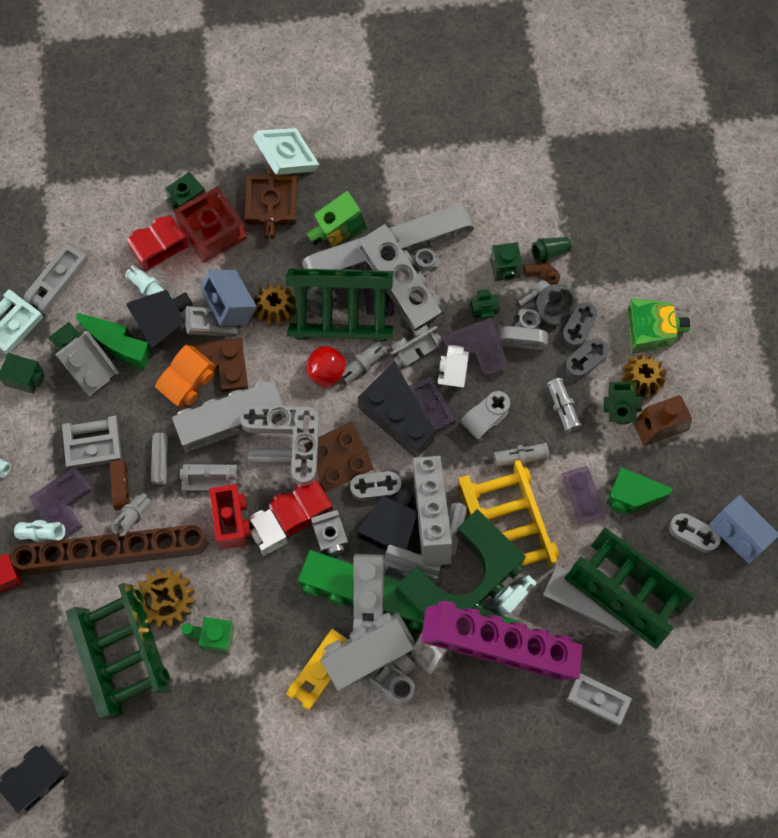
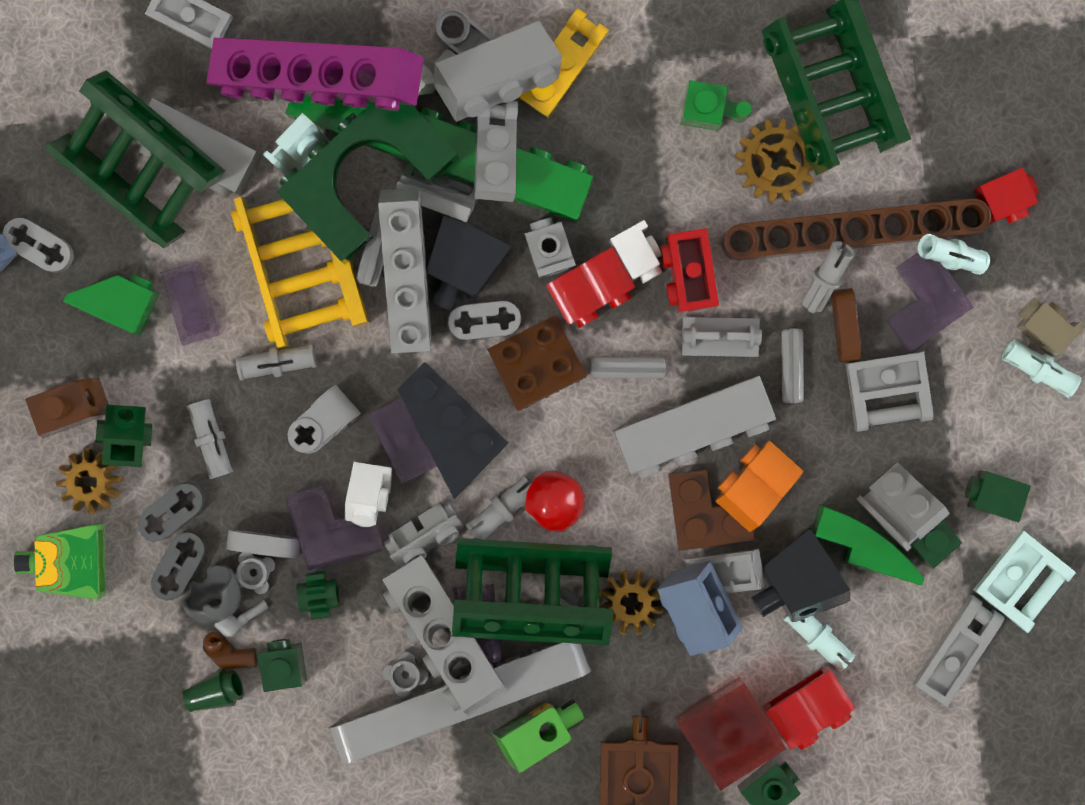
camera: 175 degrees right, 20 degrees up
(292, 426) = (602, 399): light grey beam -> none

